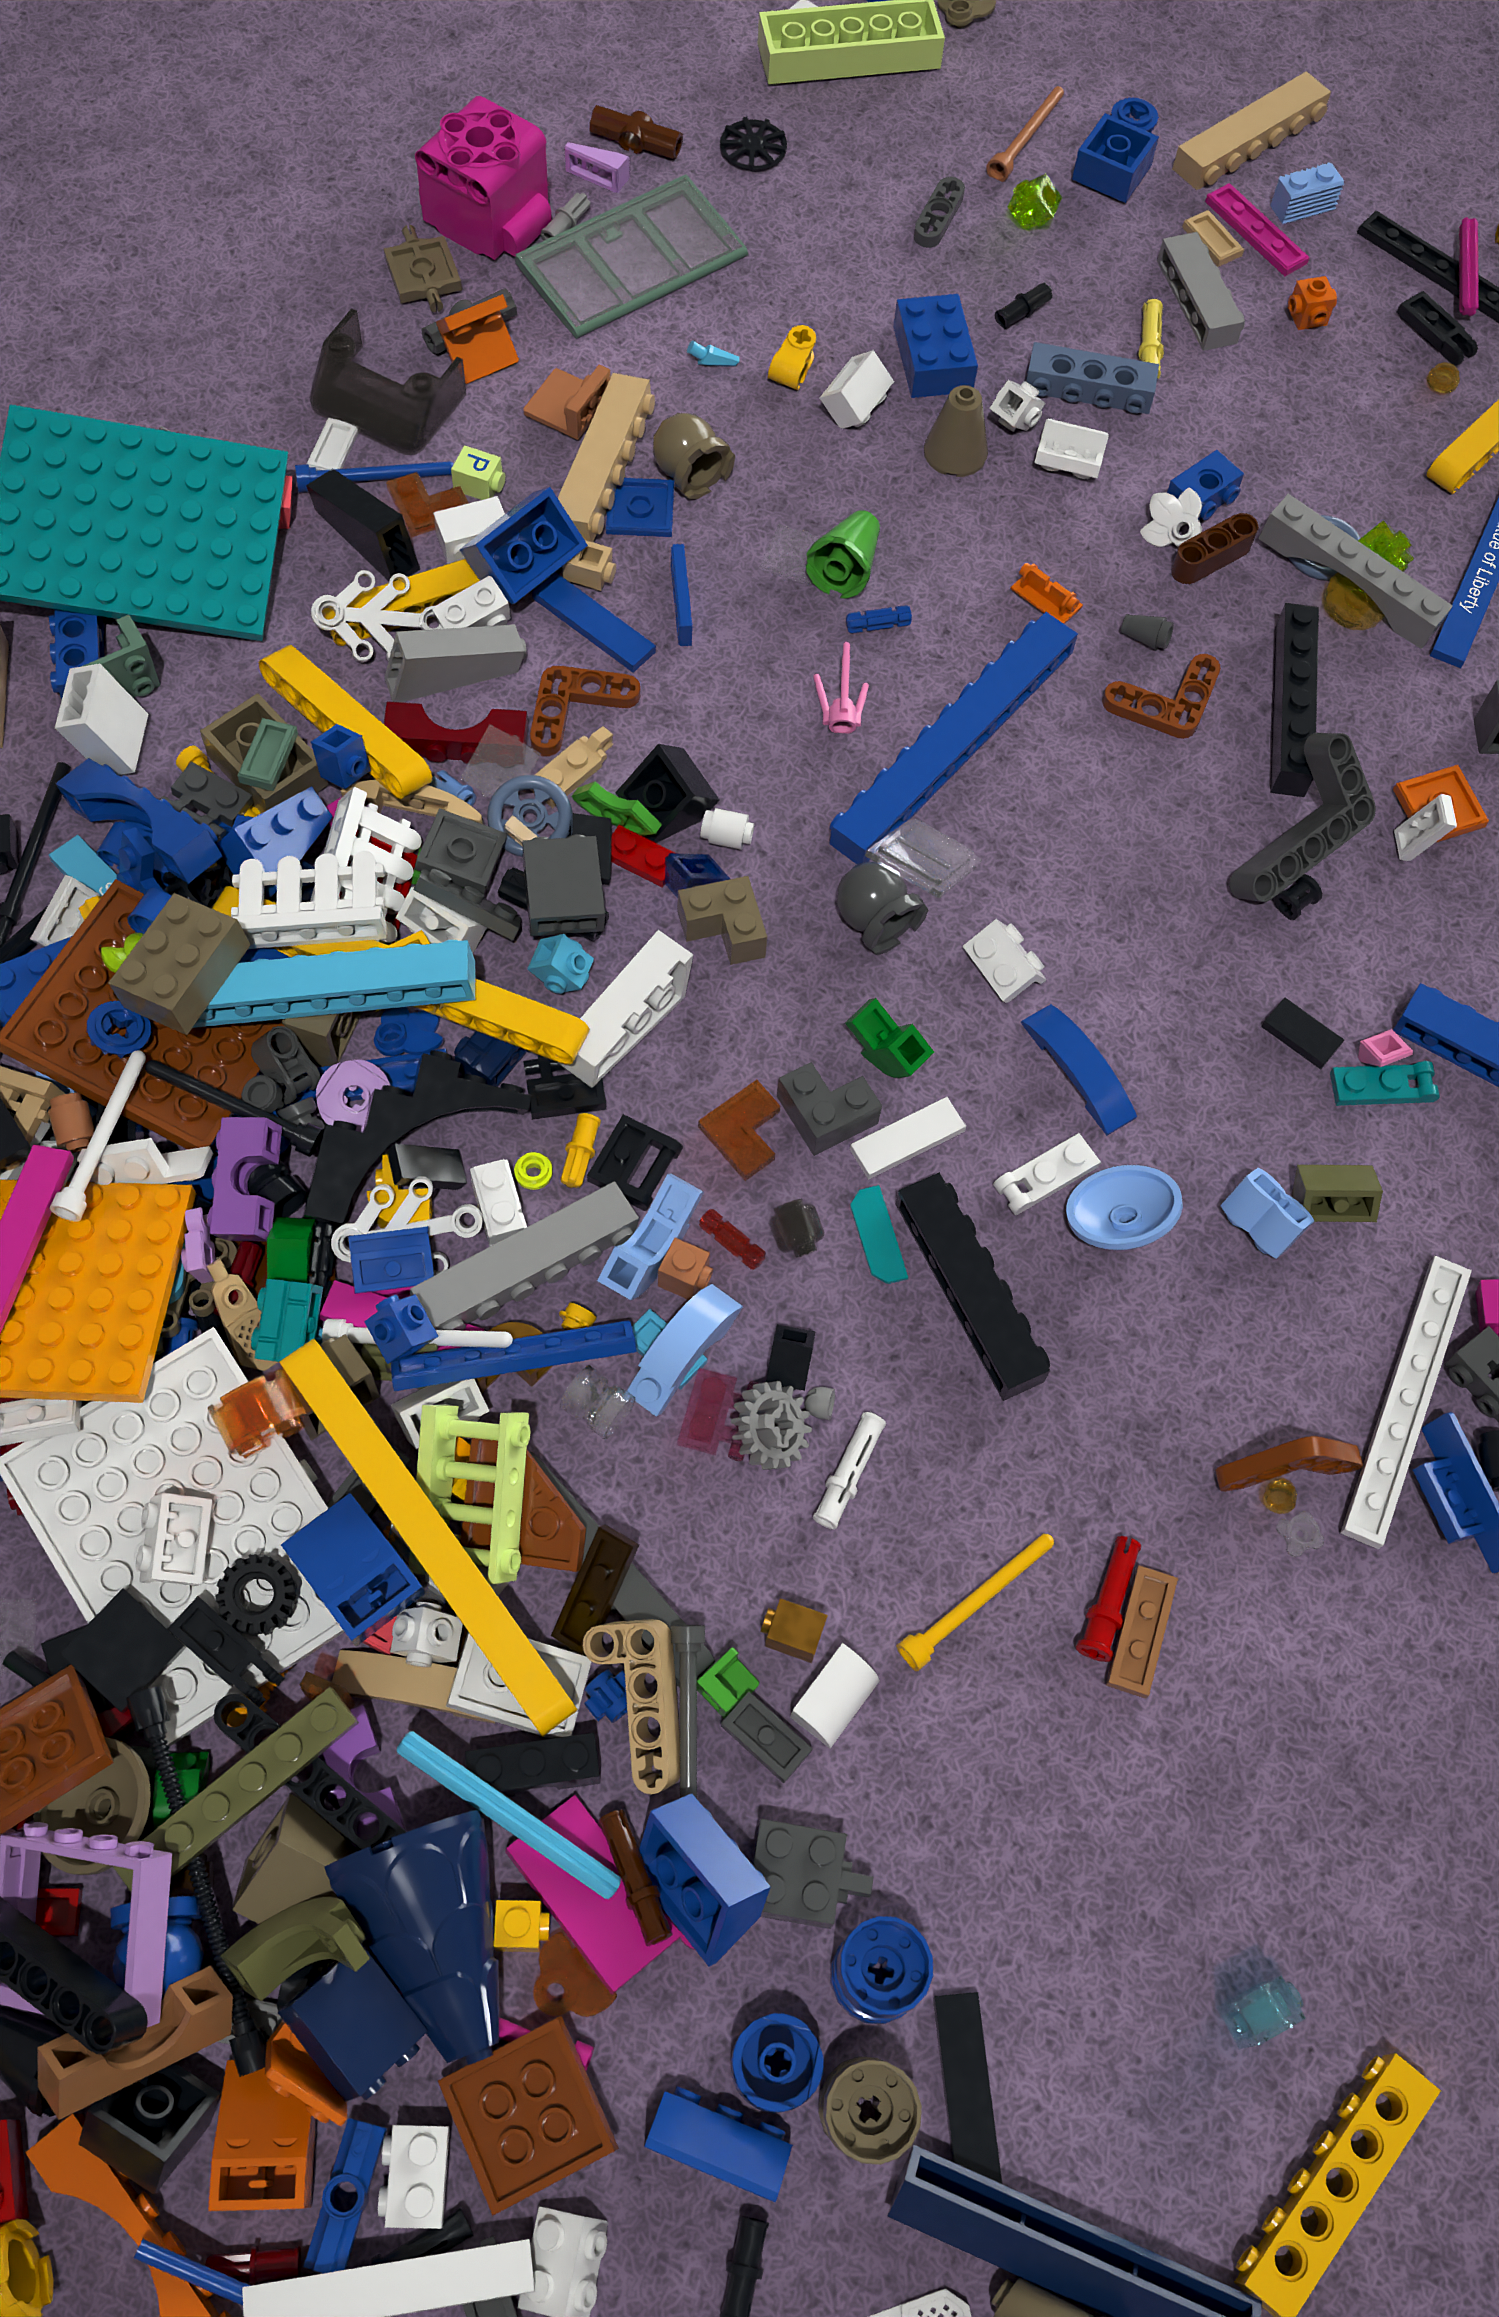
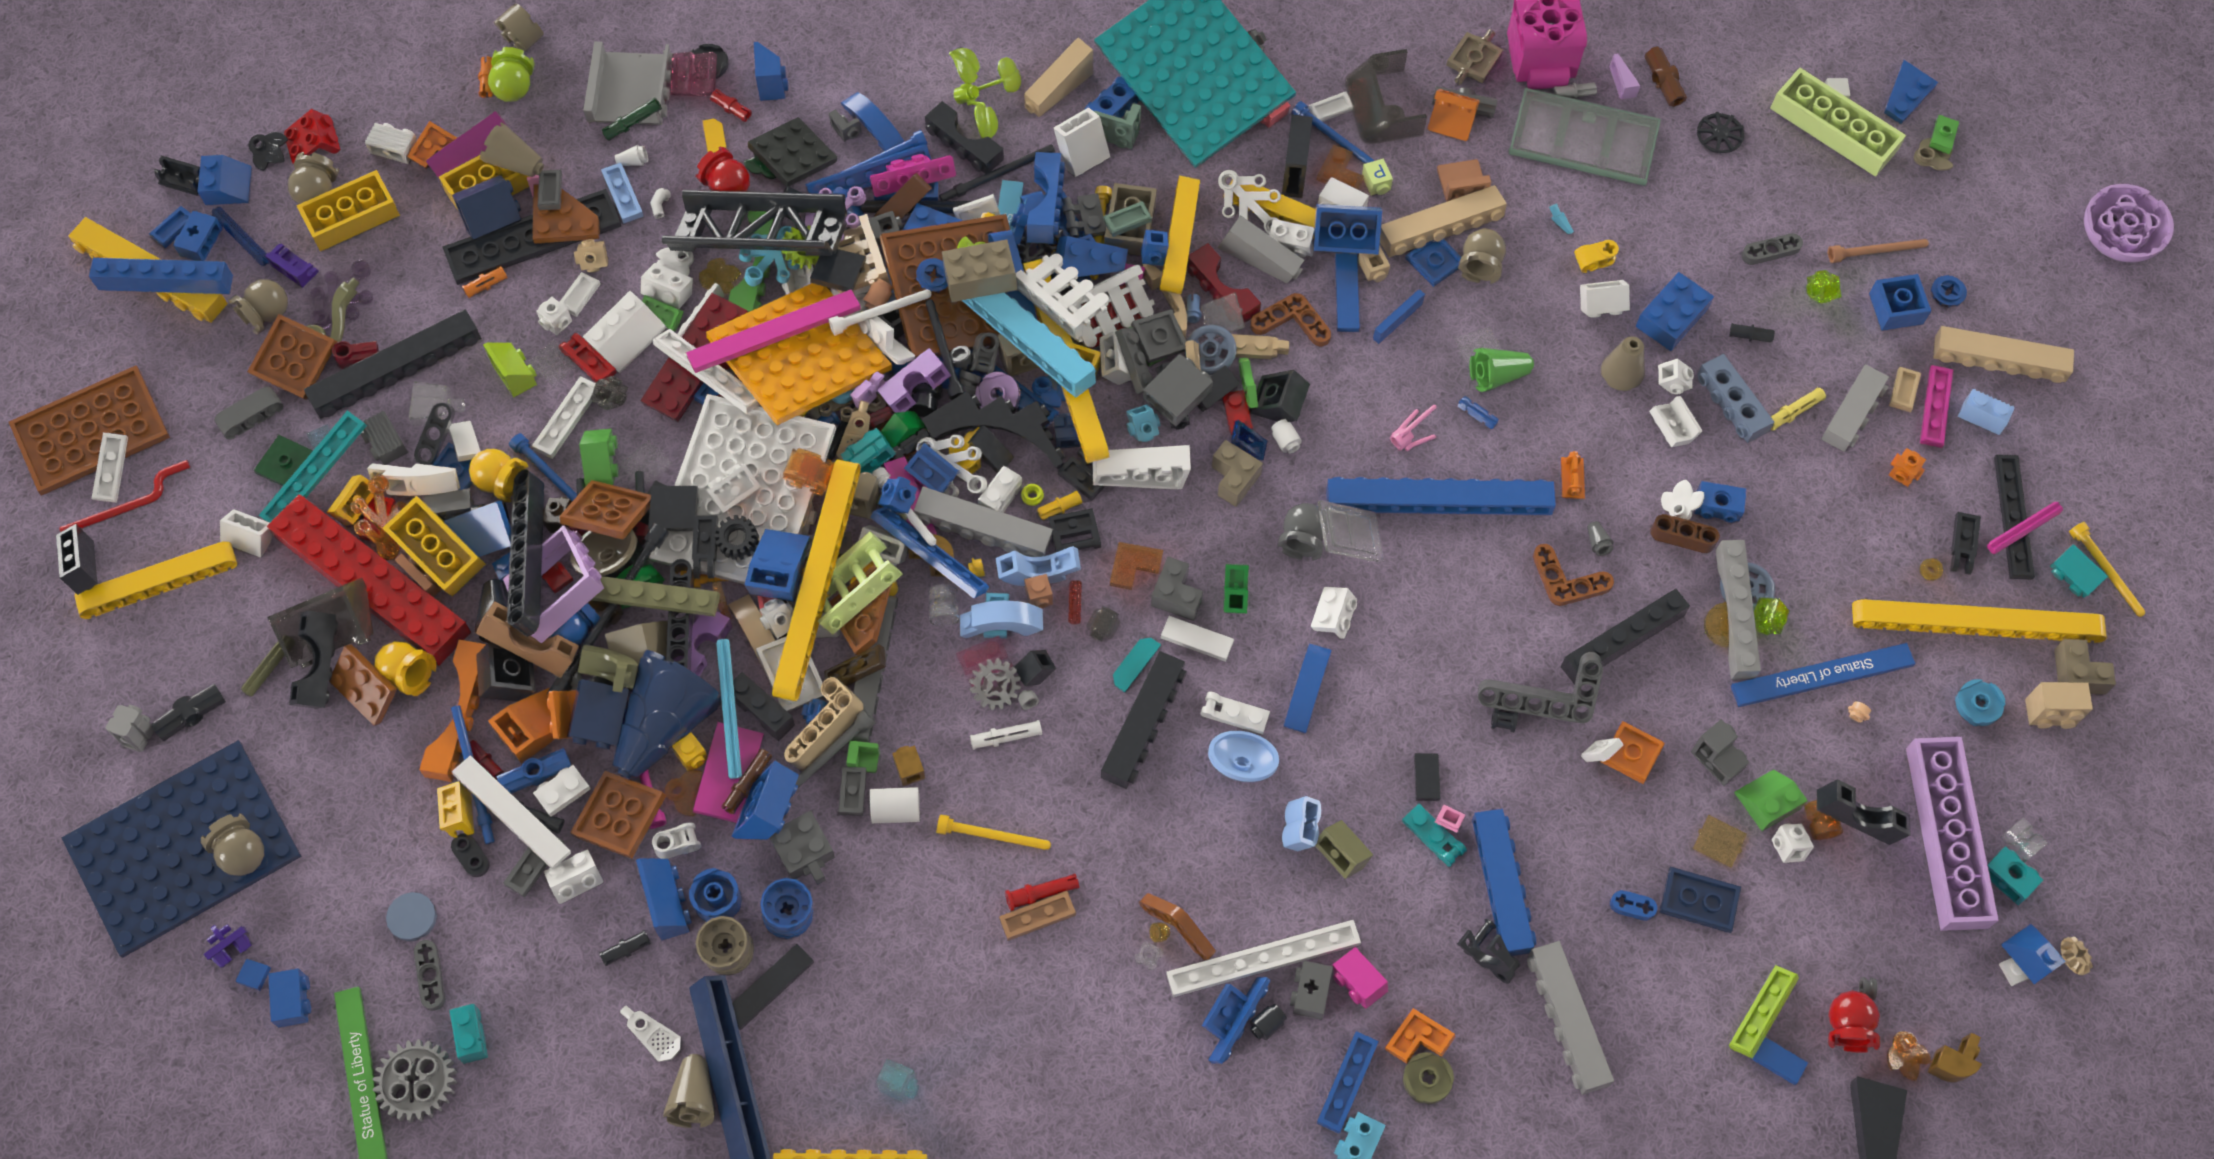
camera: 55 degrees right, 0 degrees up
(640, 2052) = (677, 840): none -> white piece

